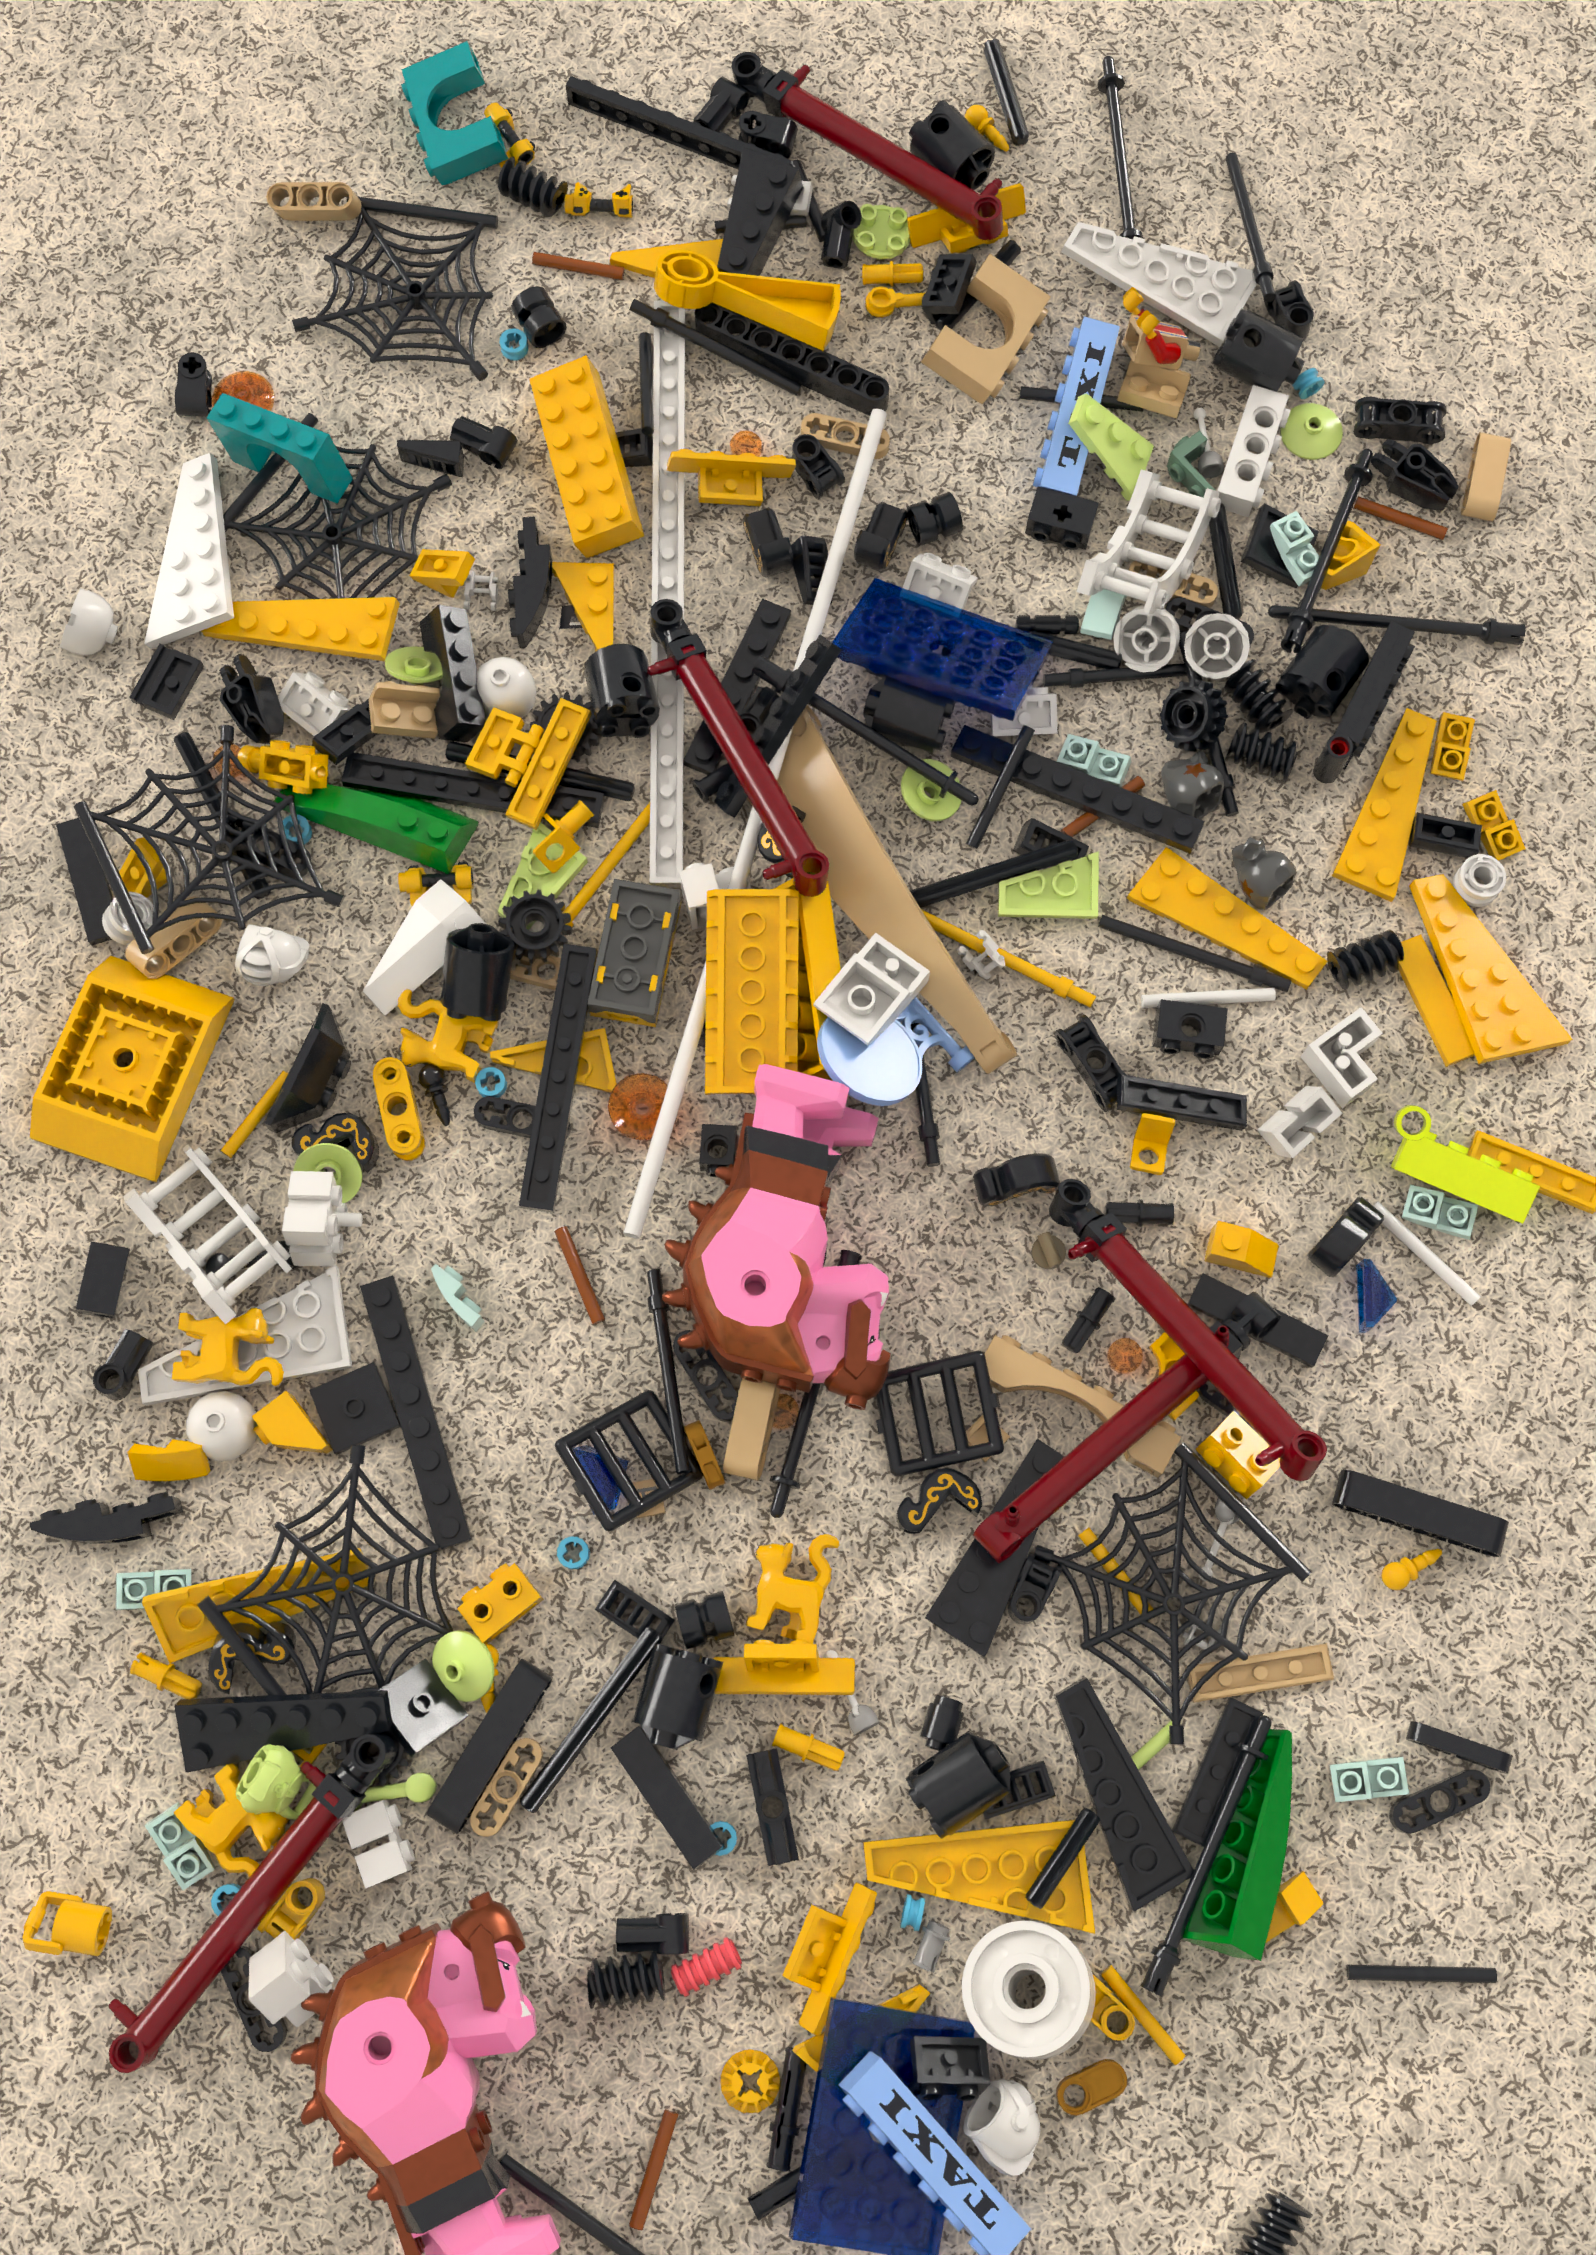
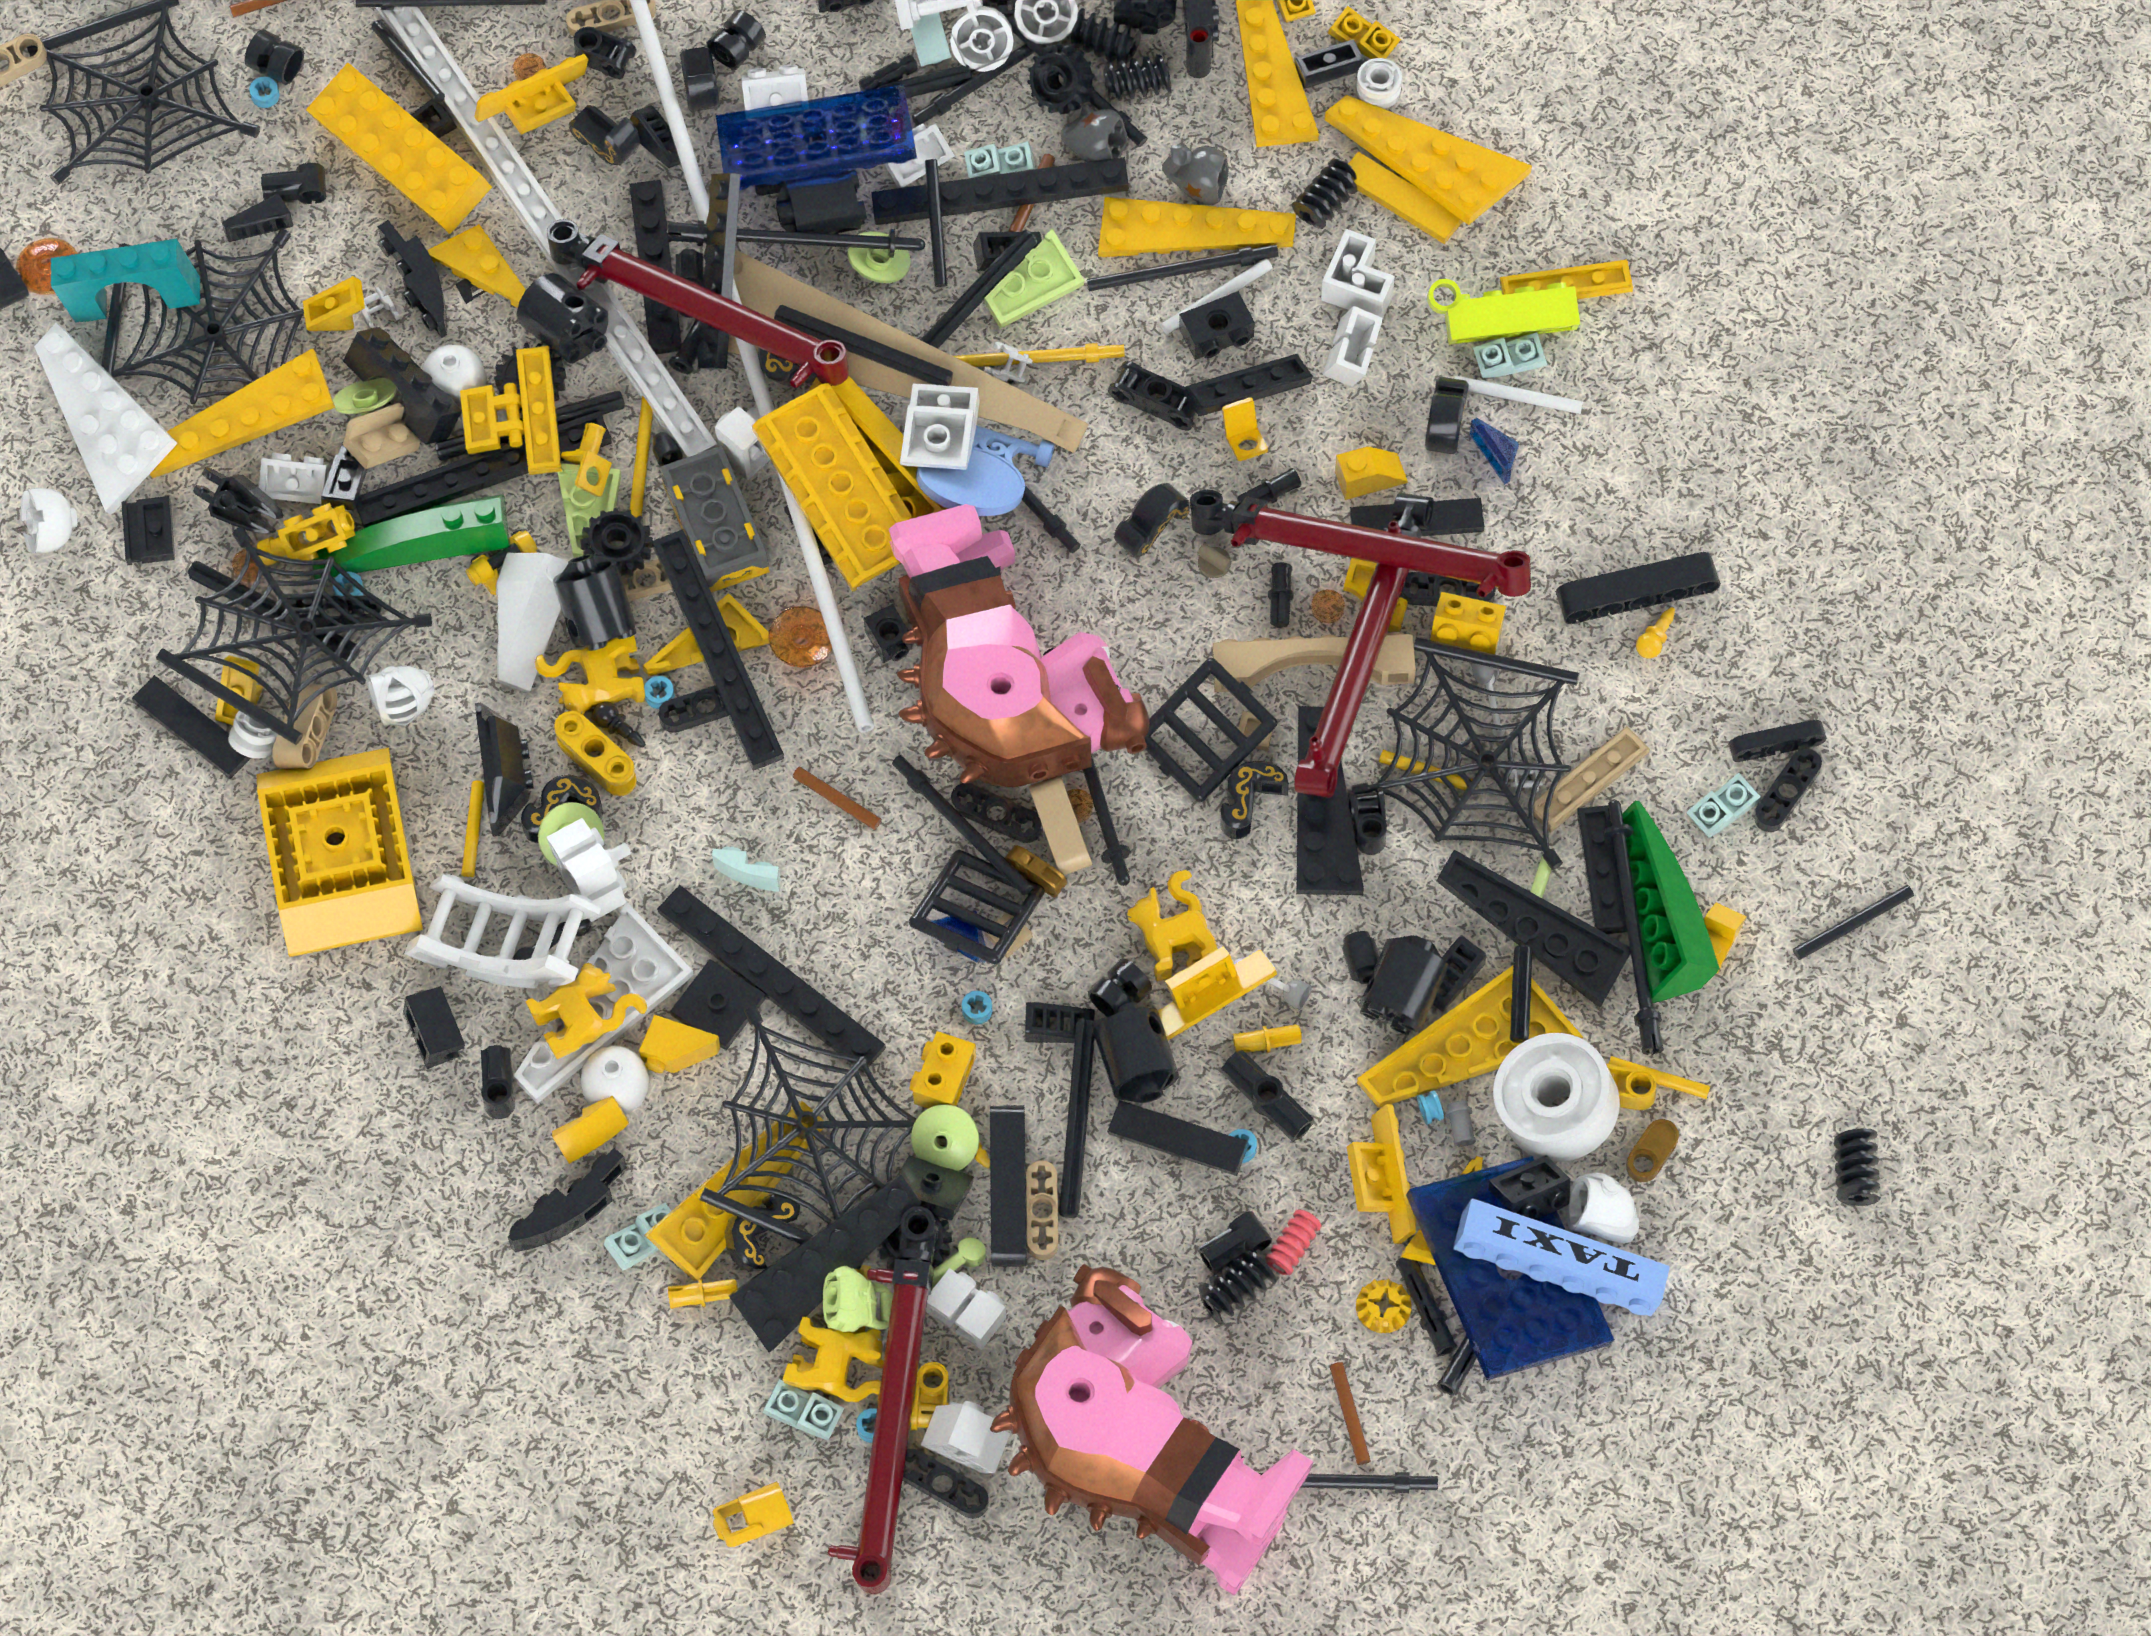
camera: 30 degrees left, 10 degrees down
(638, 857) = (663, 445): none -> black hose
(856, 871) = (865, 347): none -> black axle

